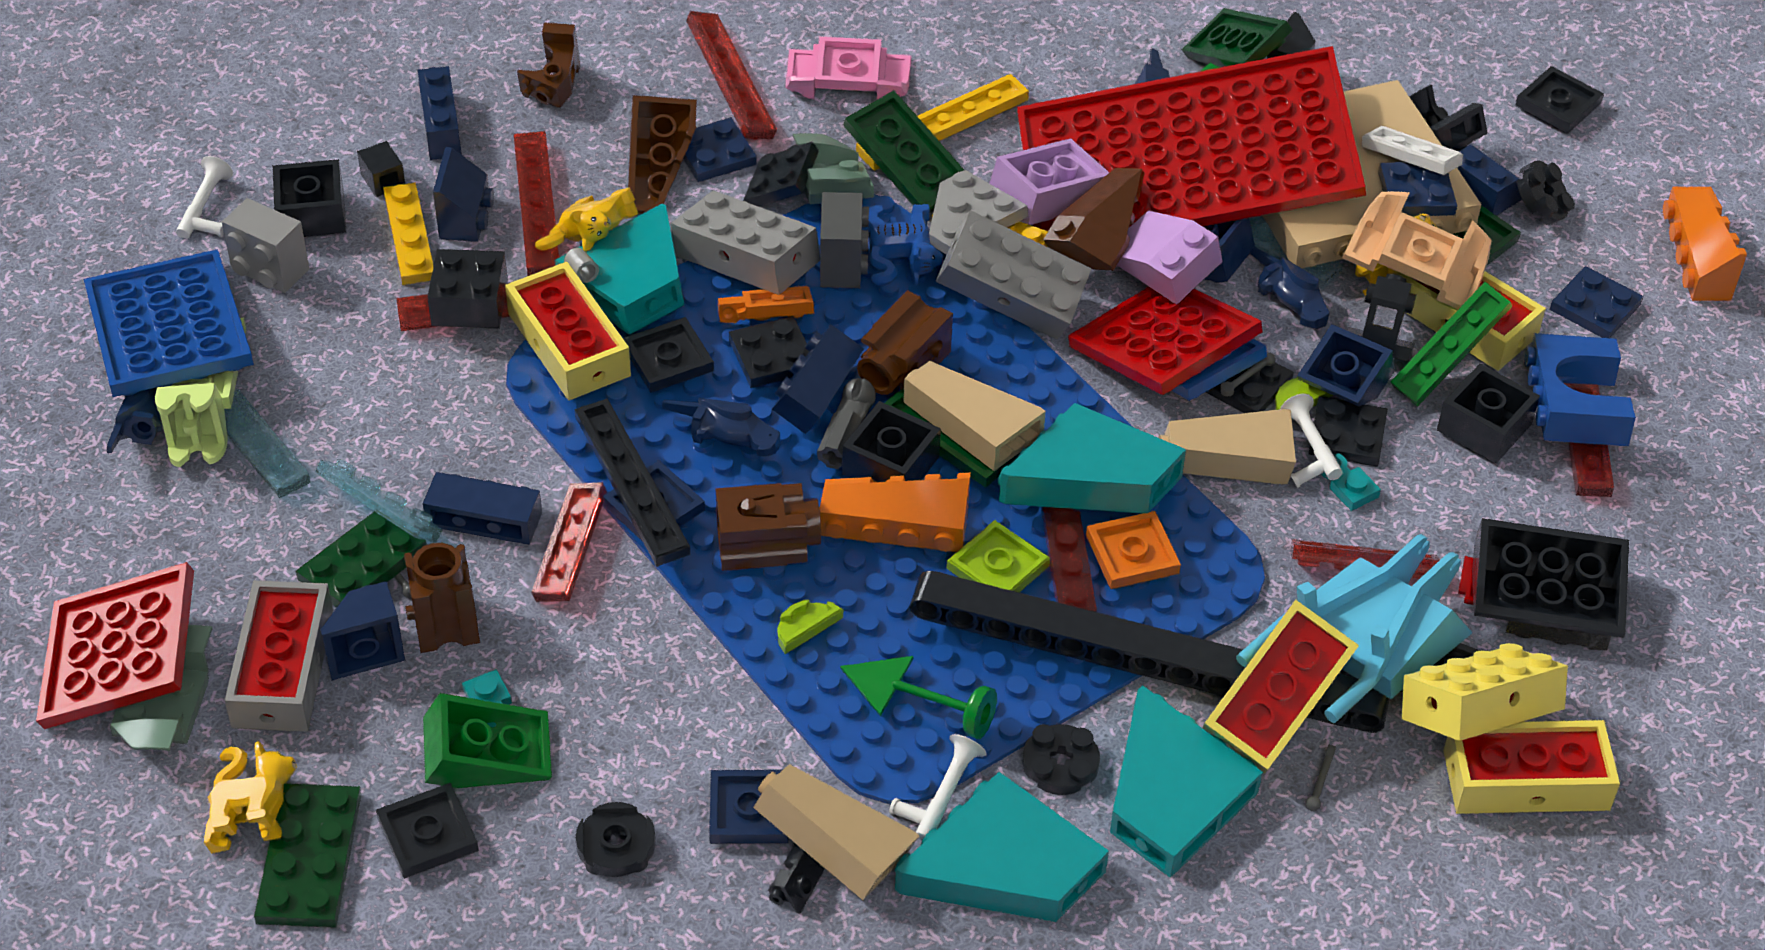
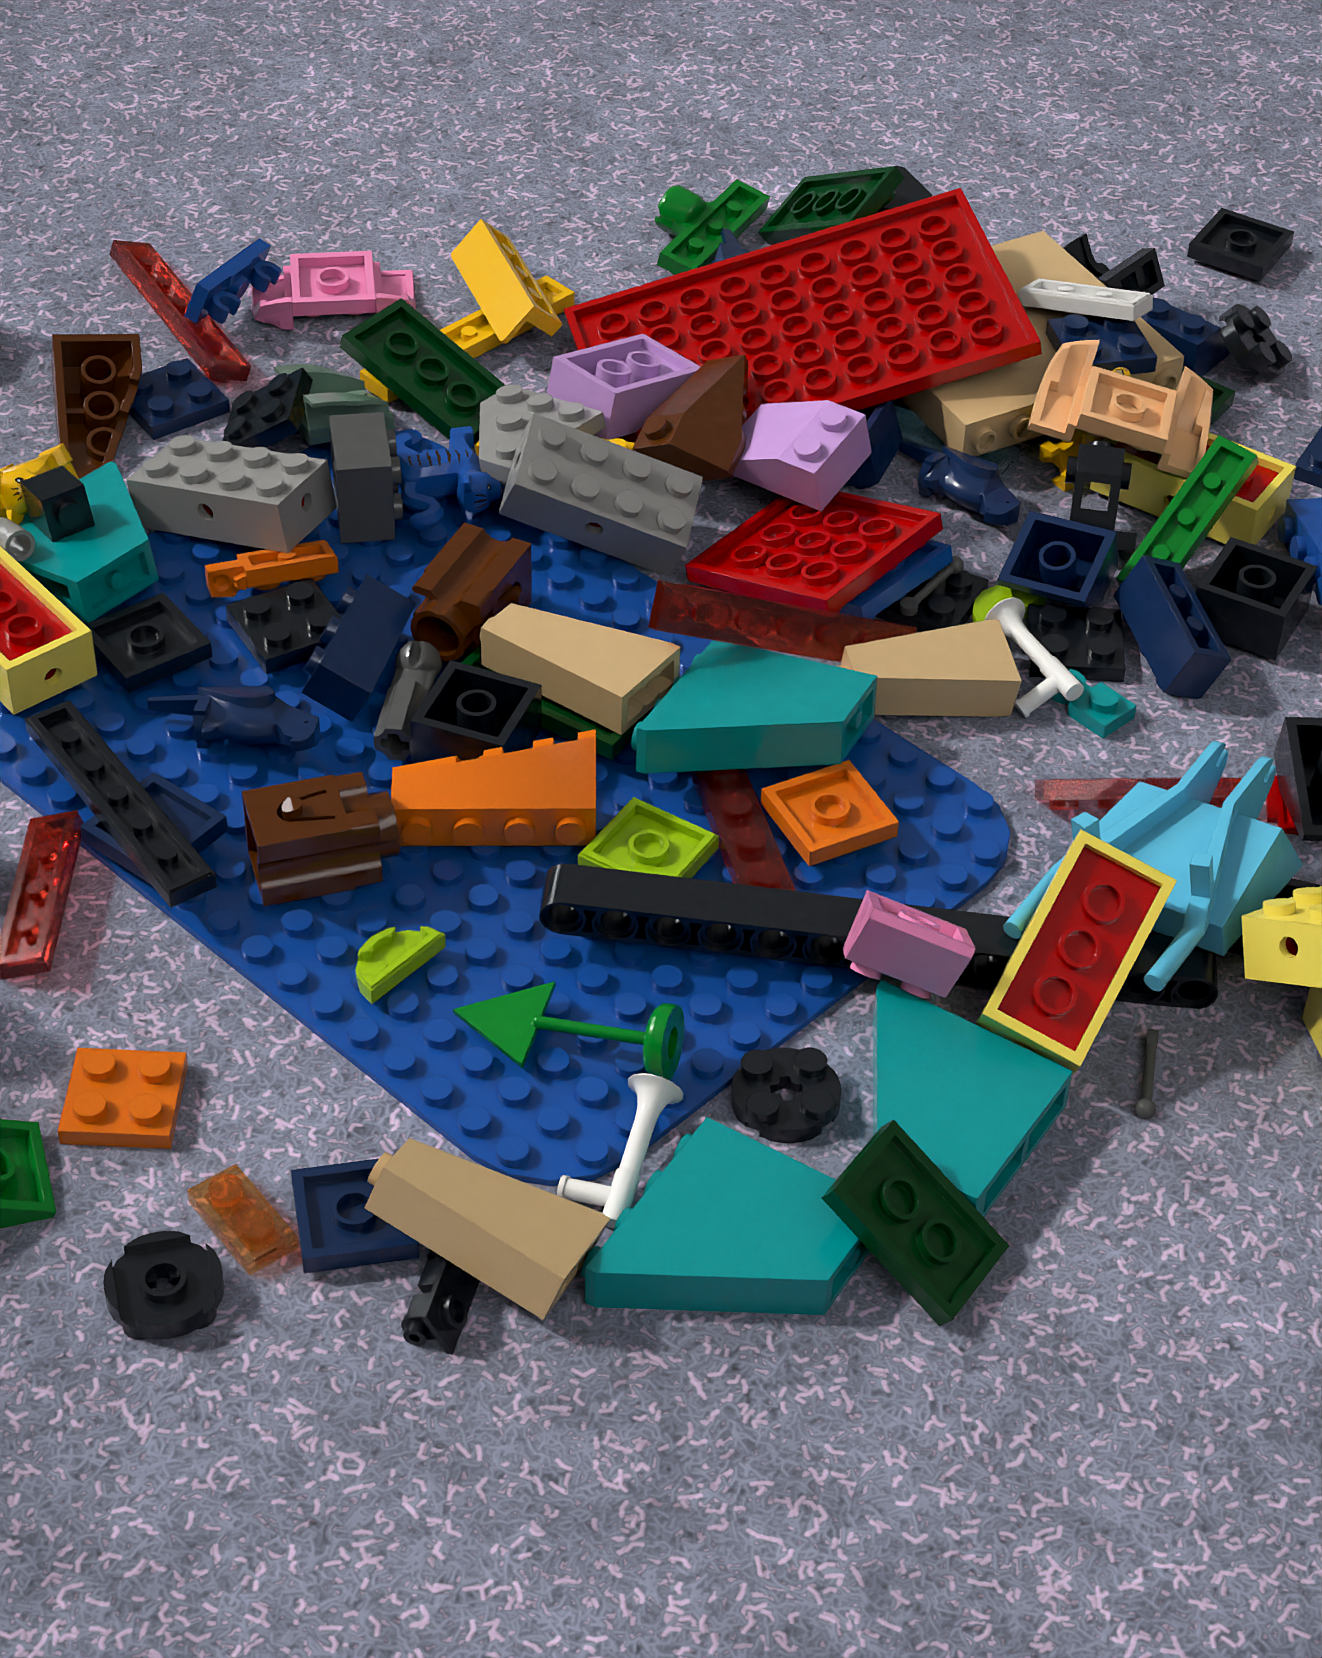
camera: 10 degrees left, 5 degrees down
(607, 700) = (123, 1098): none -> orange plate
(618, 240) = (57, 503): none -> black brick
(674, 799) = (242, 1219): none -> clear orange plate
(761, 67) = (222, 289): none -> blue plate
(975, 79) = (502, 283): none -> yellow panel
(1114, 397) = (763, 622): none -> clear red plate
(1127, 868) = (916, 1222): none -> dark green plate
(1138, 37) = (699, 223): none -> green plate
(1162, 664) = (907, 946): none -> bright pink slope
(1419, 430) = (1171, 627): none -> dark blue brick

